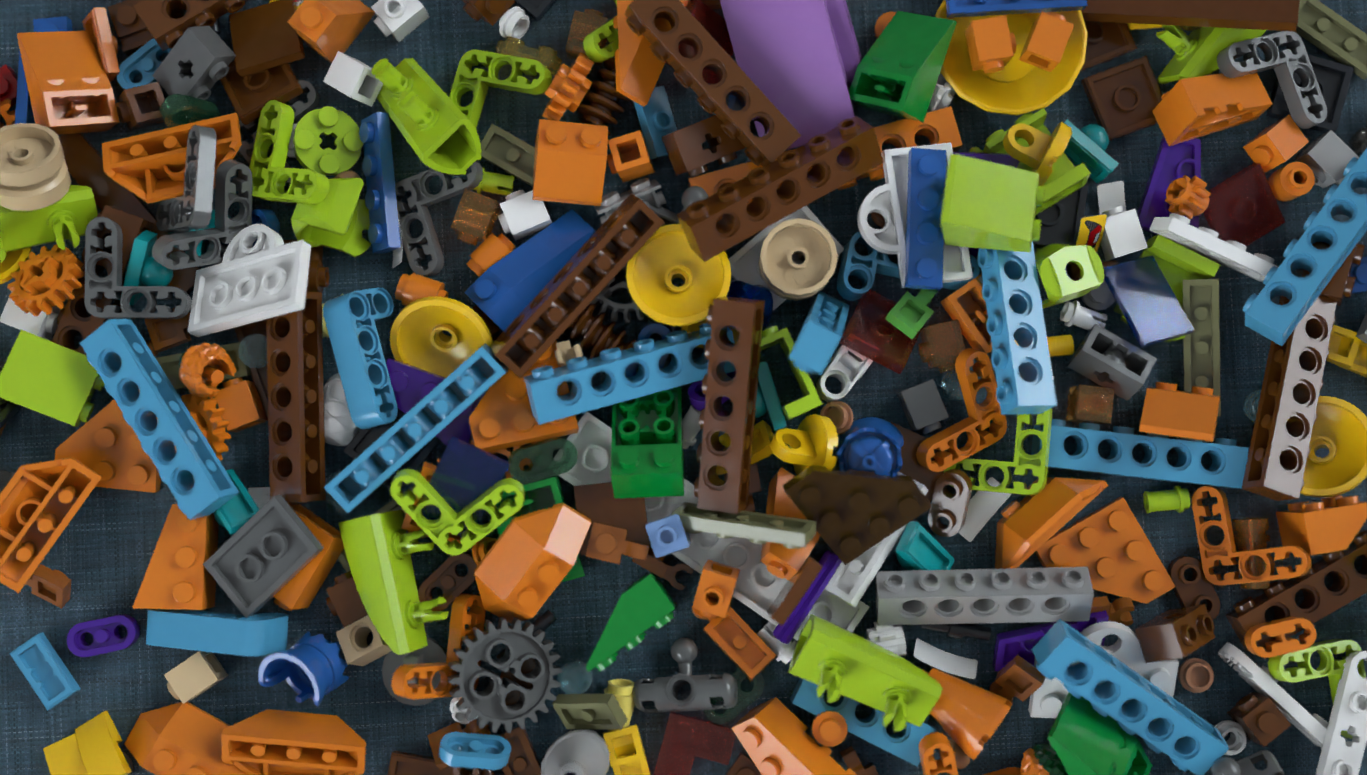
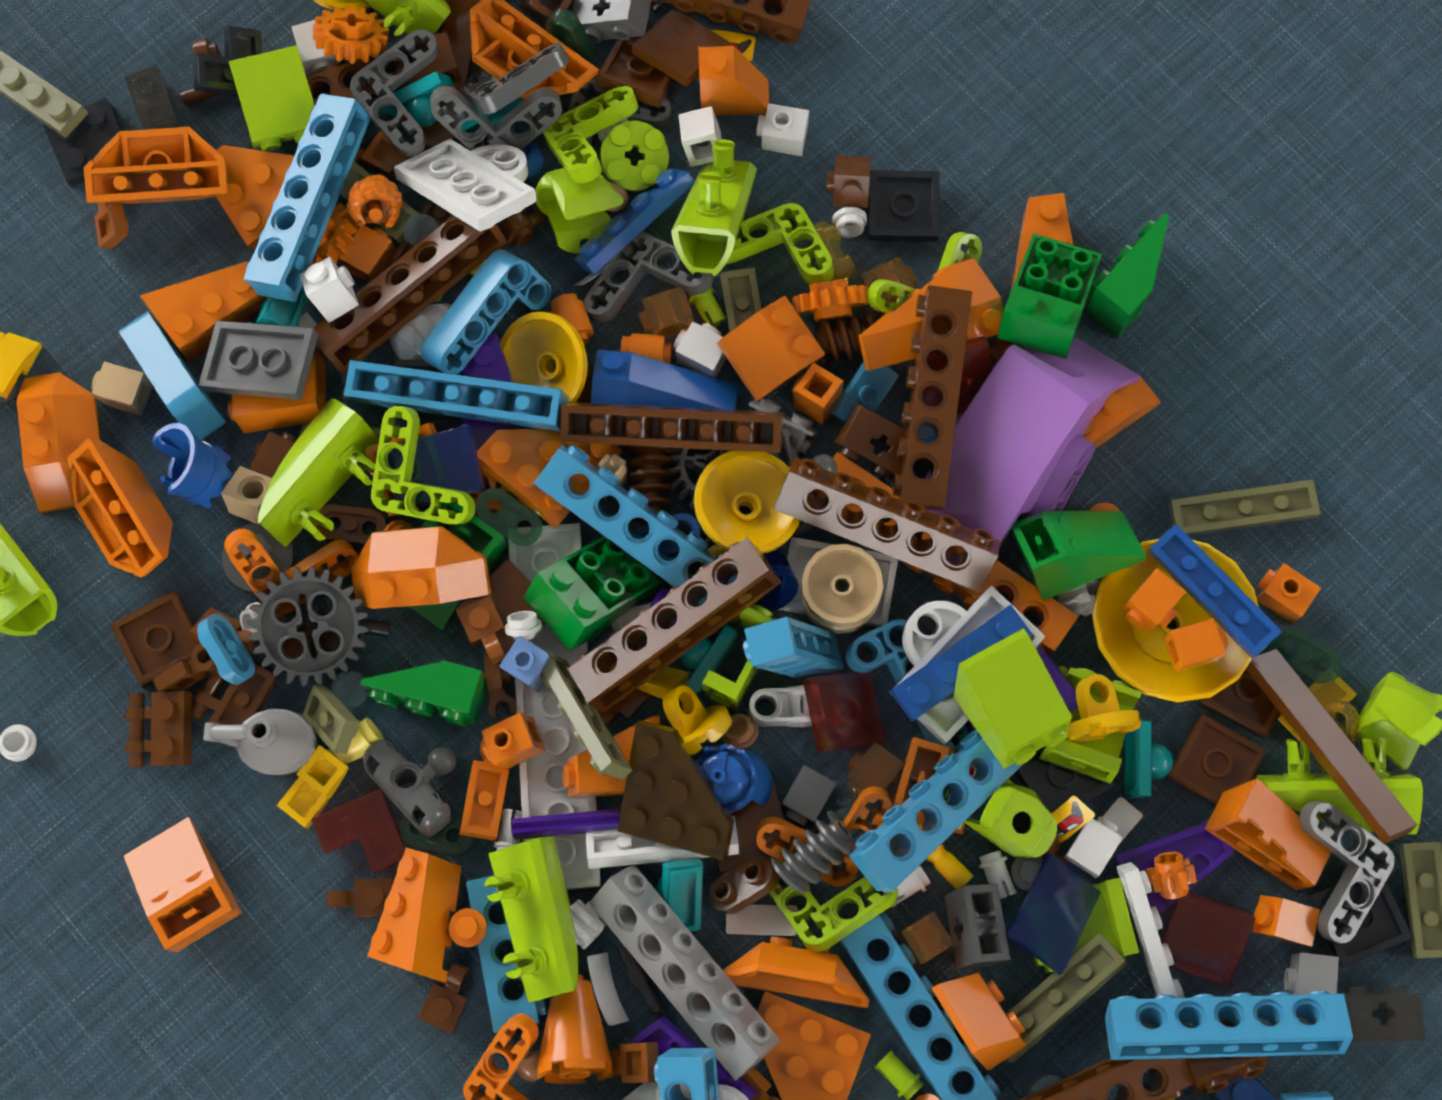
camera: 55 degrees right, 10 degrees down
(45, 671) = (38, 273): dark azure plate -> none
(105, 635) = (103, 296): dark purple plate -> none
(250, 458) = (329, 288): none -> white brick
(636, 515) = (523, 624): none -> white plate
(793, 591) = (561, 801): reddish brown tile -> none
(912, 312) = (878, 722): bright green plate -> none
(978, 436) = (816, 854): none -> dark grey piece
(1291, 181) = (1254, 960): orange brick -> none

